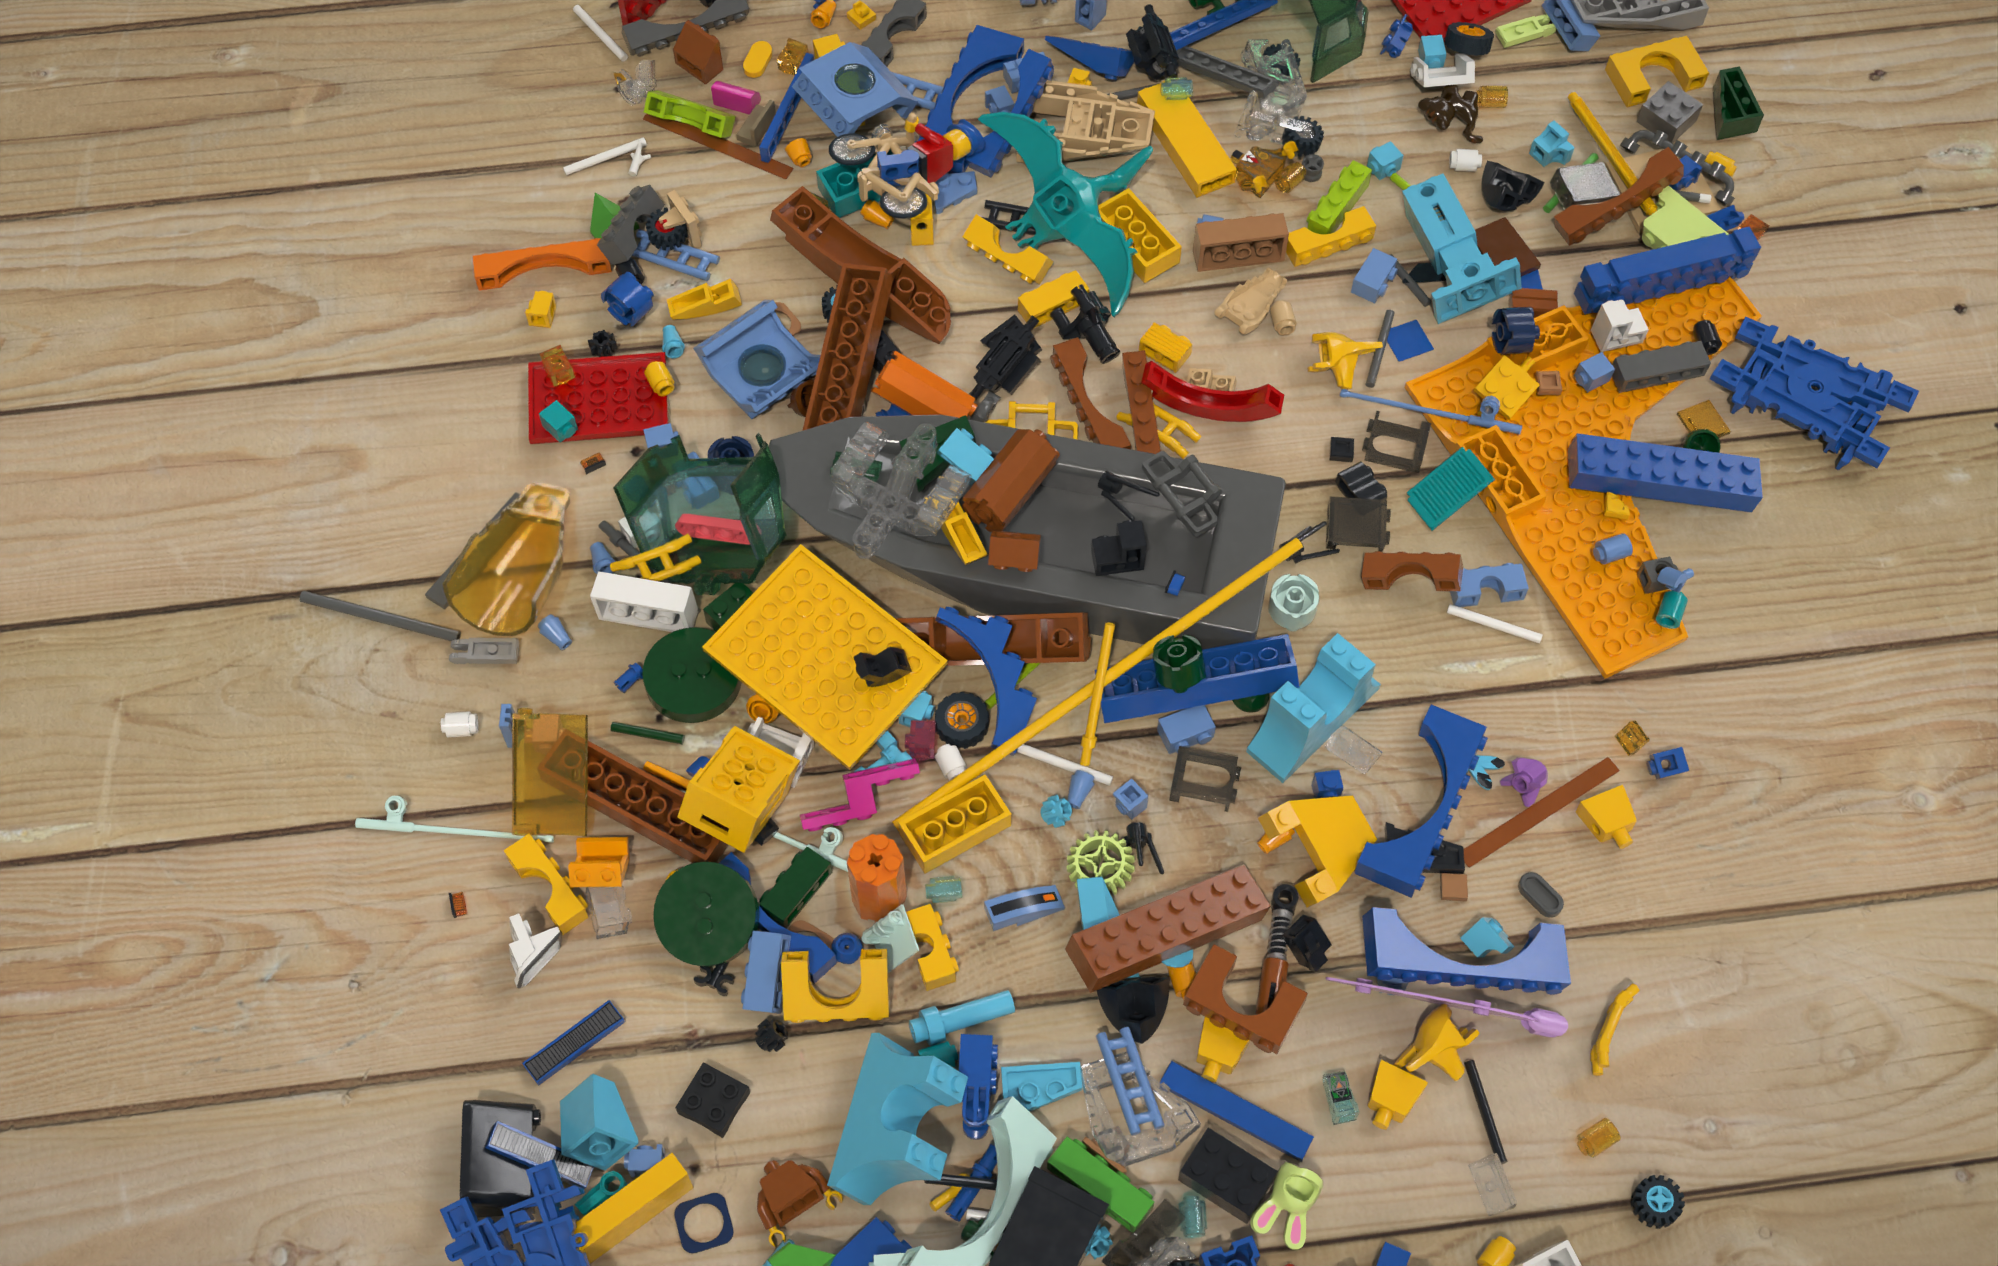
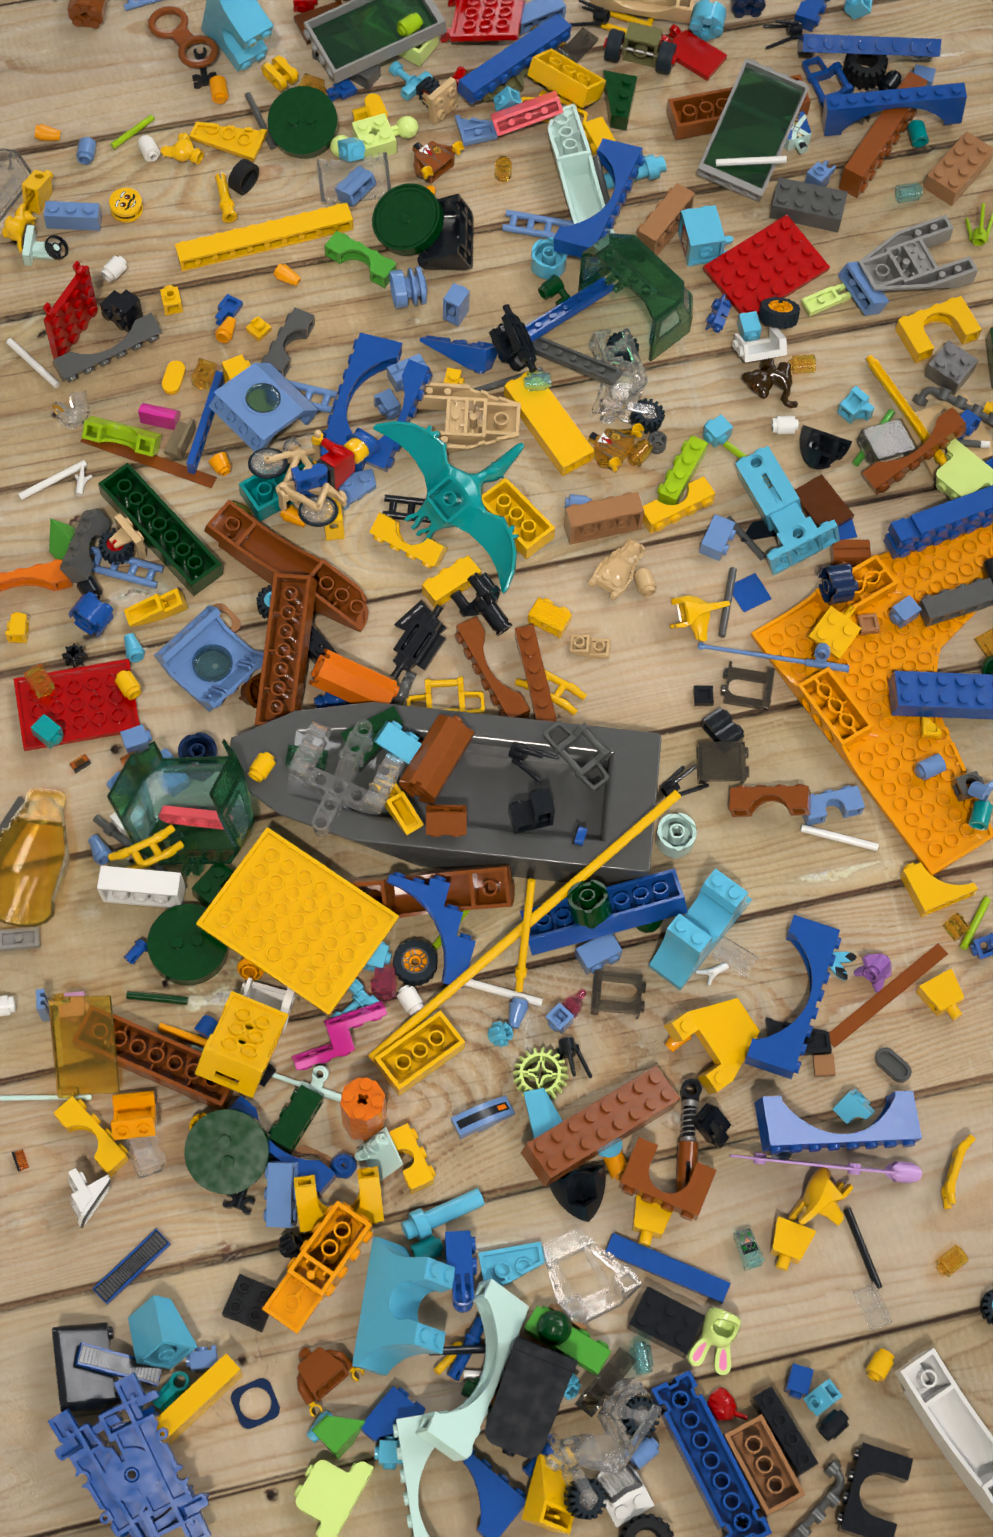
camera: 10 degrees left, 5 degrees up
(554, 631) = (68, 917): medium blue cone -> none
(698, 52) = (122, 378): dark orange slope -> none
(722, 216) = (161, 529): none -> dark green brick
(801, 473) = (261, 766): none -> yellow brick
(801, 1060) = (319, 1266): none -> light orange wedge
(882, 668) = (348, 928): black brick -> none
(943, 889) = (416, 1109): clear light blue brick -> none
(1085, 1165) = (554, 1327): none -> dark green piece
(1125, 1095) = (570, 1248): medium blue bar -> none
(1152, 784) = (574, 1003): none -> clear pink piece
(1209, 403) = (593, 665): red arch -> none
(1326, 764) = (713, 972): none -> white bar
(1327, 784) = (716, 991): blue brick -> none
(1449, 487) = (794, 723): teal window -> none
(1602, 696) = (930, 893): none -> yellow arch
(1618, 326) = (922, 570): white brick -> none
(1656, 737) = (975, 923): none -> lime bar

